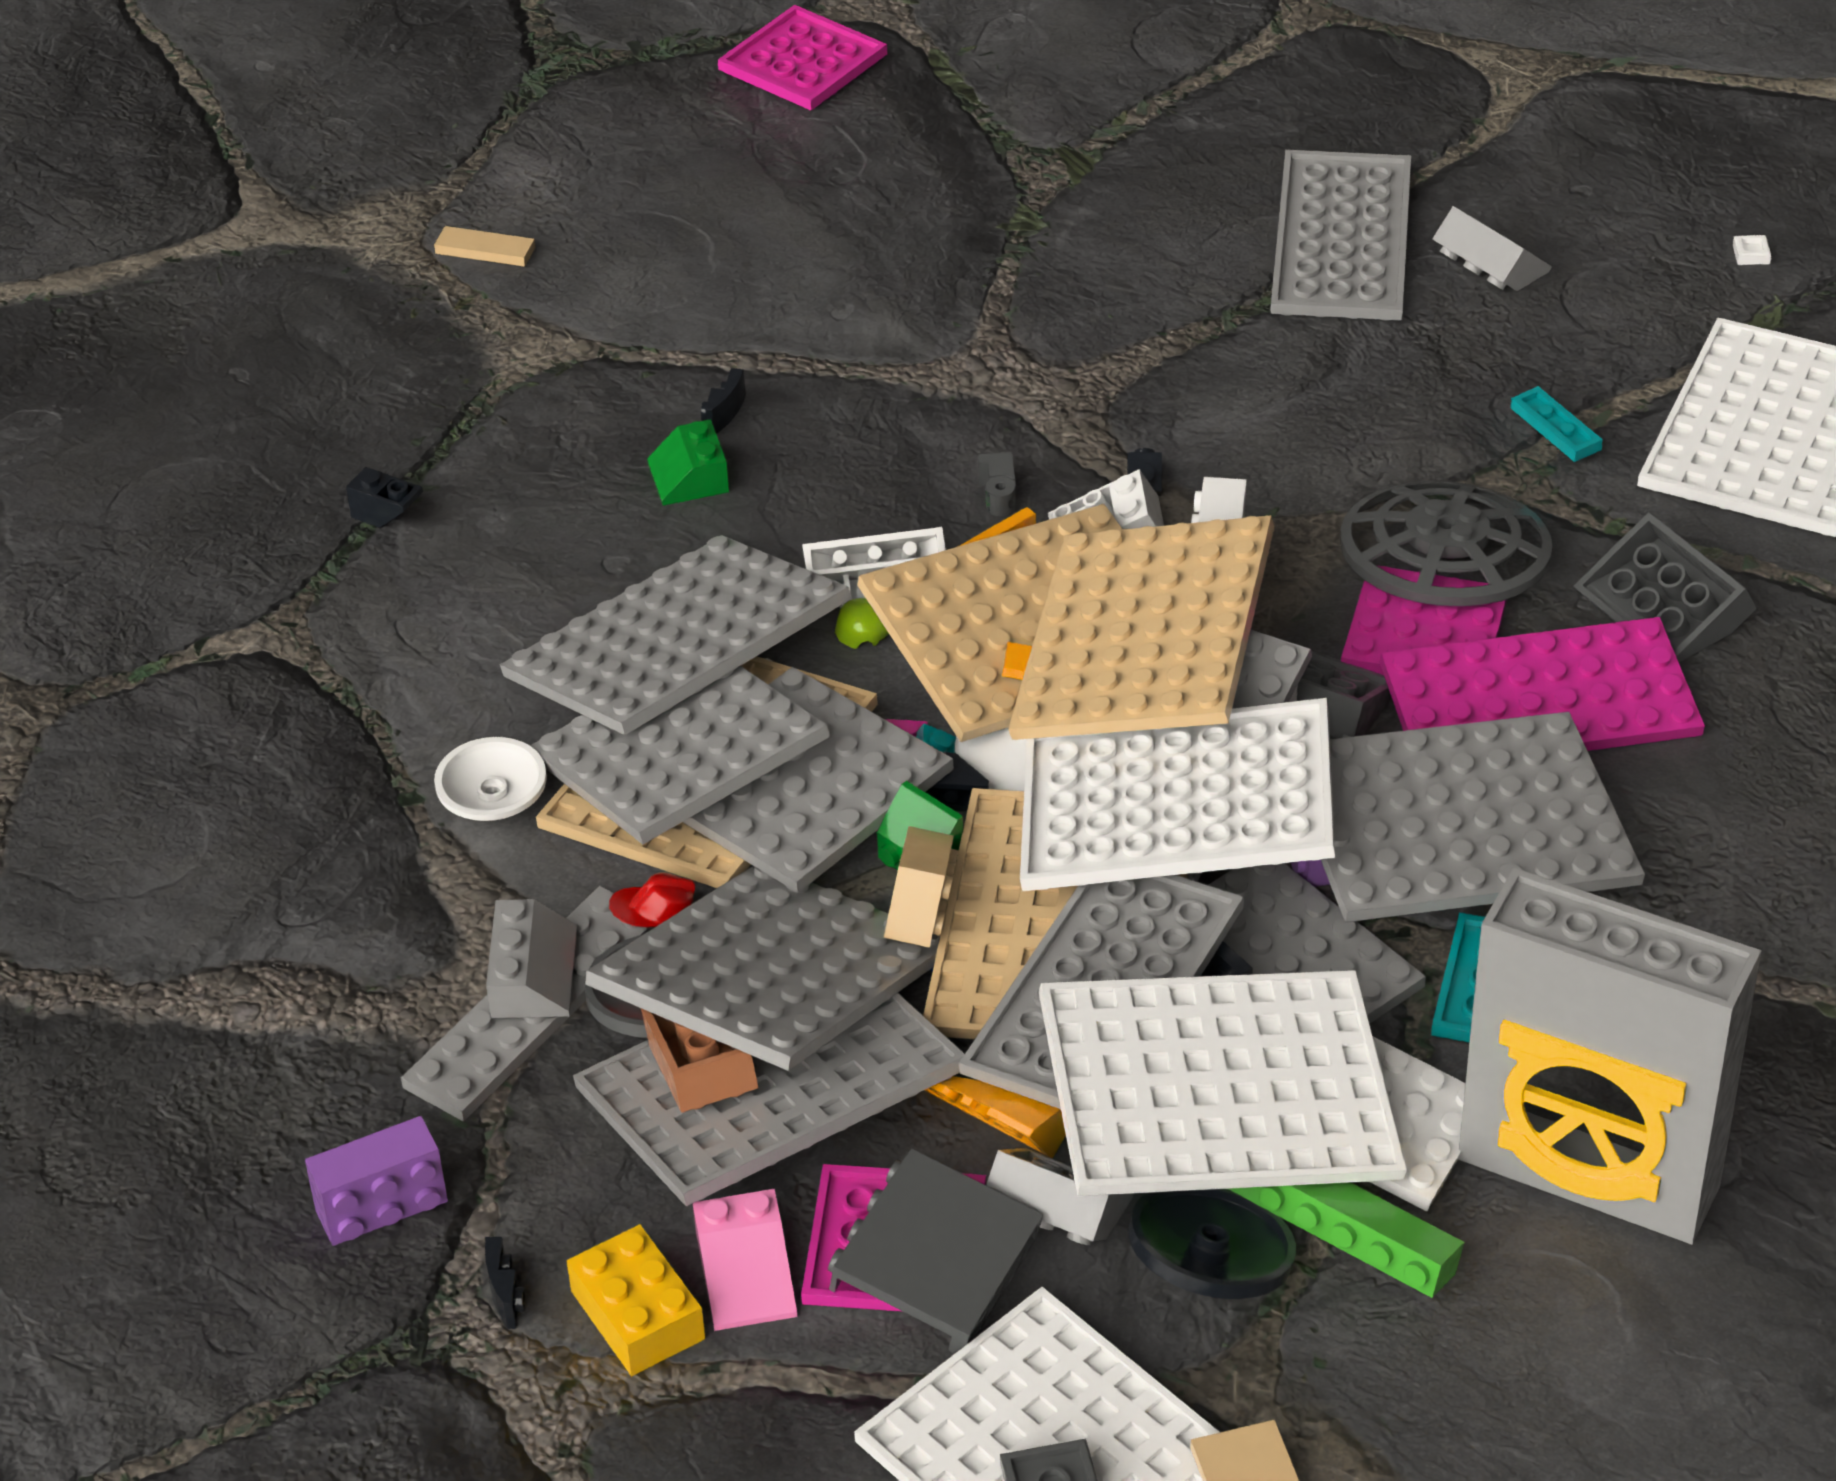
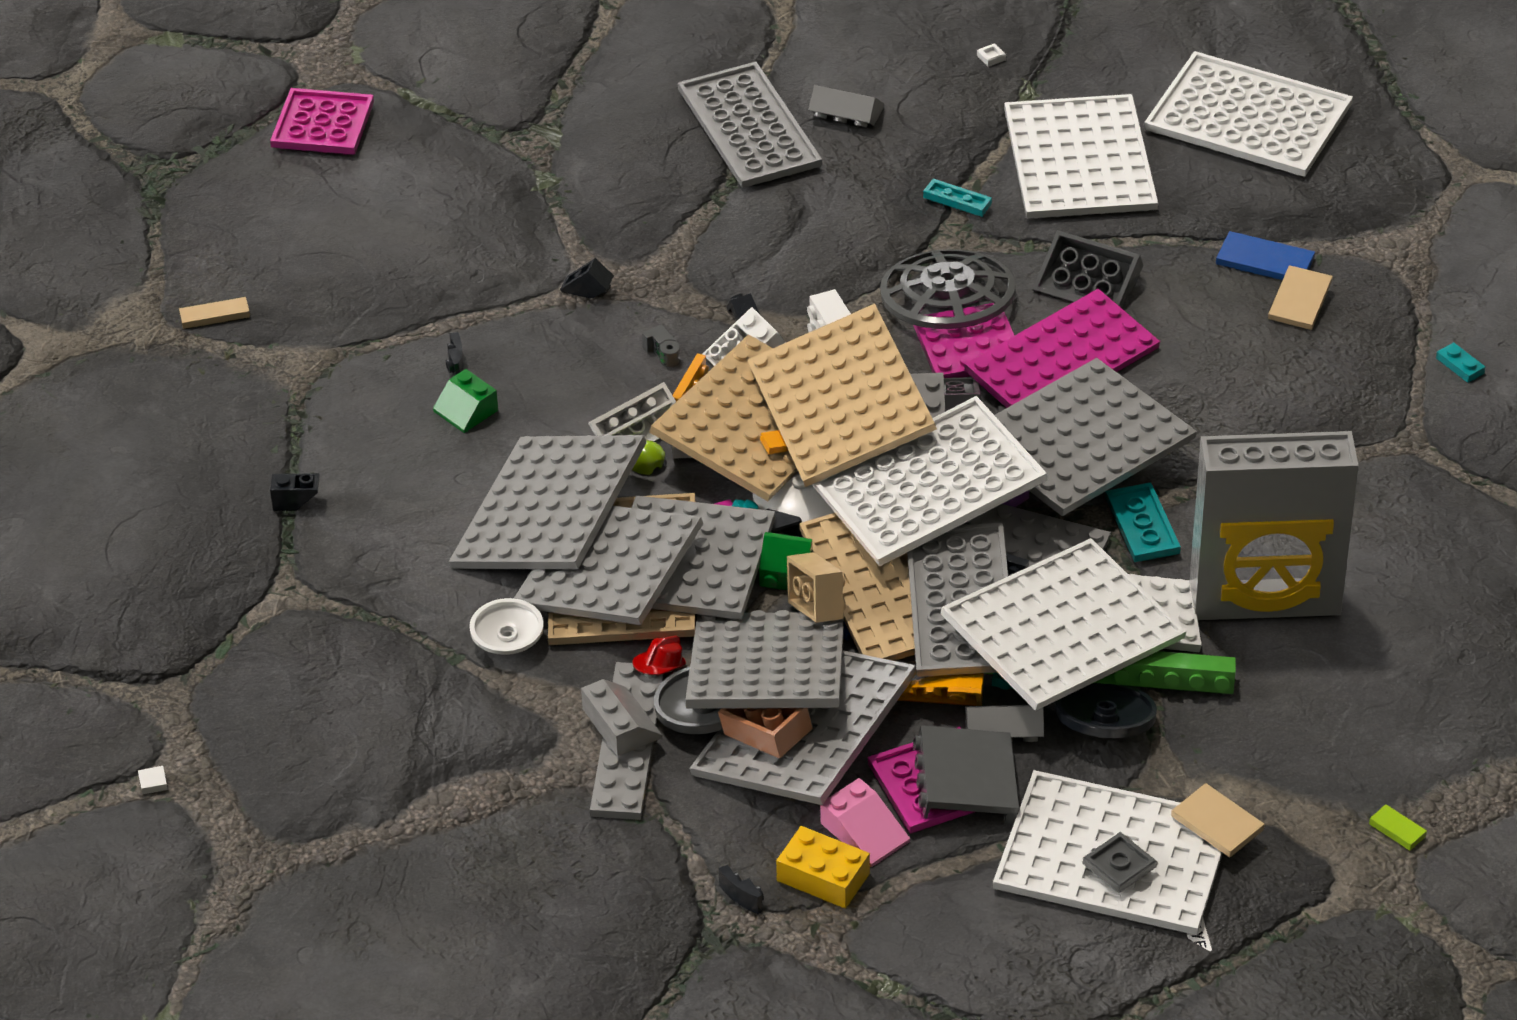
camera: 30 degrees left, 0 degrees up
(376, 1180) = (631, 865): medium lavender brick -> none
(969, 364) = (588, 280): none -> black slope

